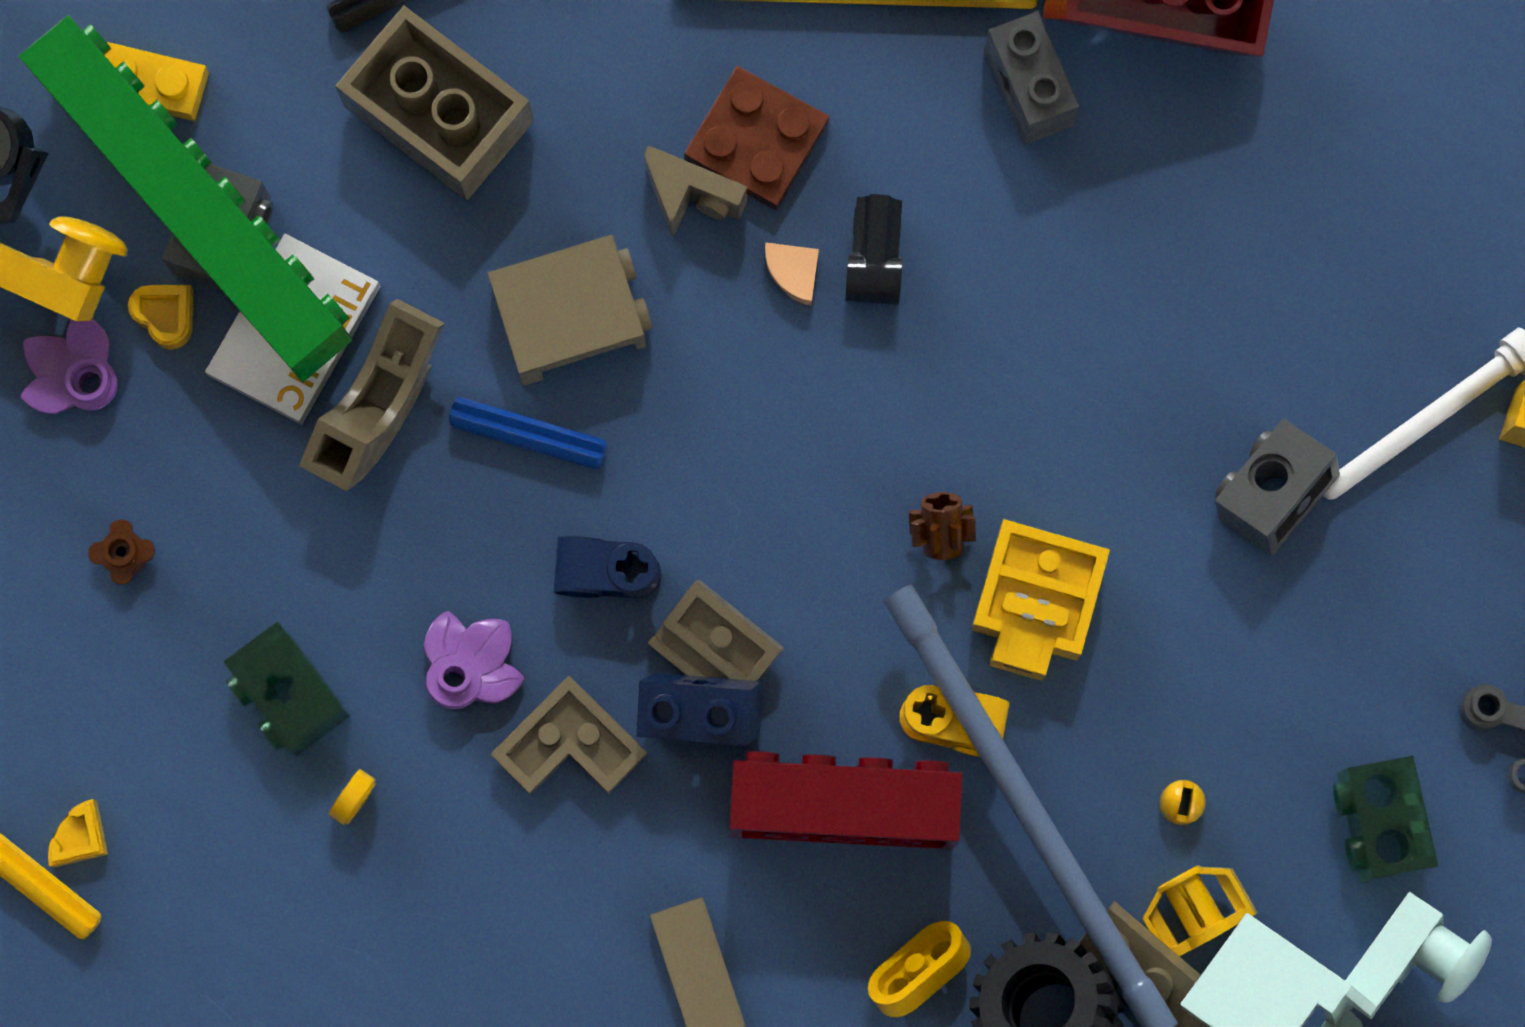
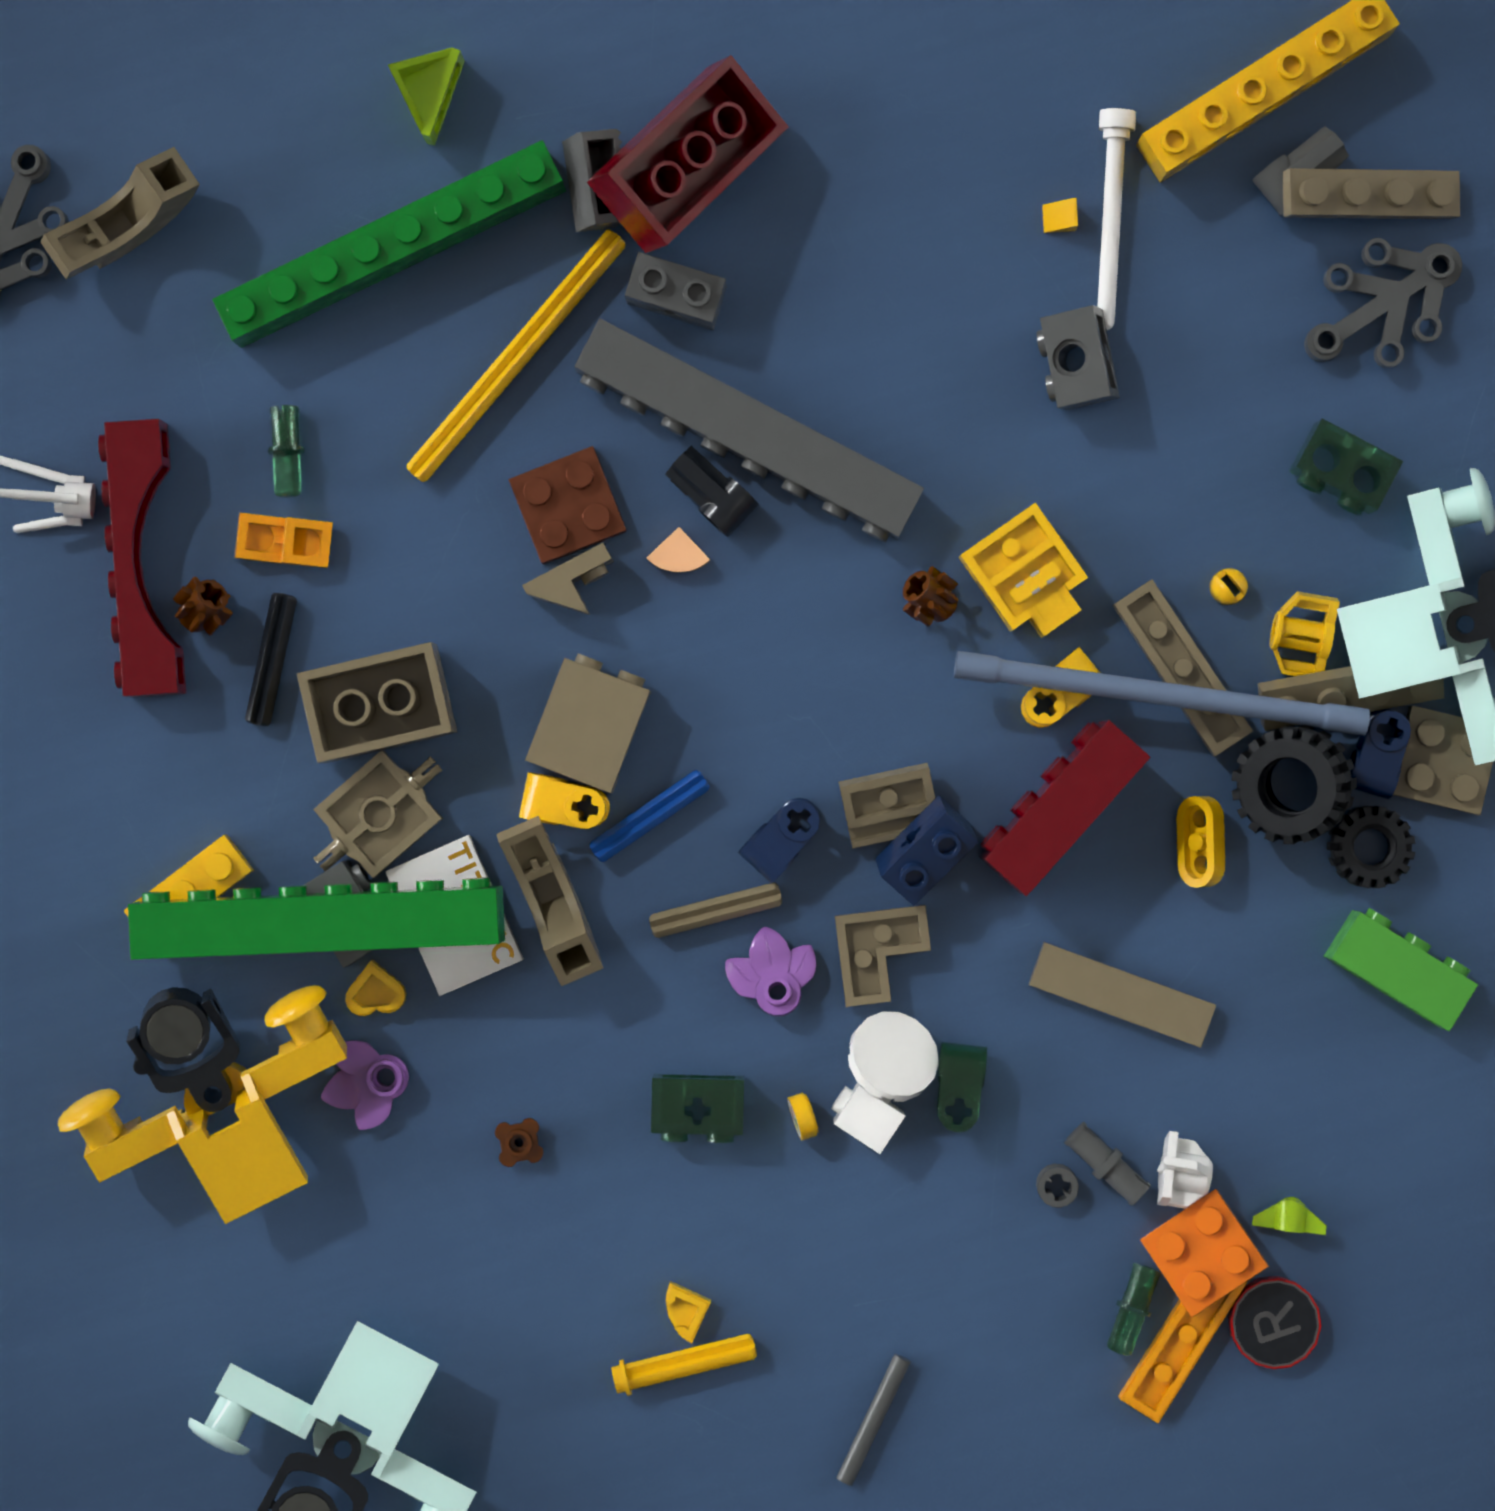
camera: 50 degrees left, 10 degrees up
(334, 186) = (378, 813): none -> dark tan plate
(402, 858) = (867, 1117): none -> white brick
(474, 339) = (557, 801): none -> yellow piece
(477, 835) = (893, 1056): none -> white tile
(487, 562) = (715, 910): none -> dark tan axle
(511, 918) = (960, 1076): none -> clear green piece
(959, 244) = (748, 430): none -> dark grey brick
(1075, 808) = (1178, 661): none -> dark tan plate
(1391, 371) = (1060, 216): none -> yellow piece

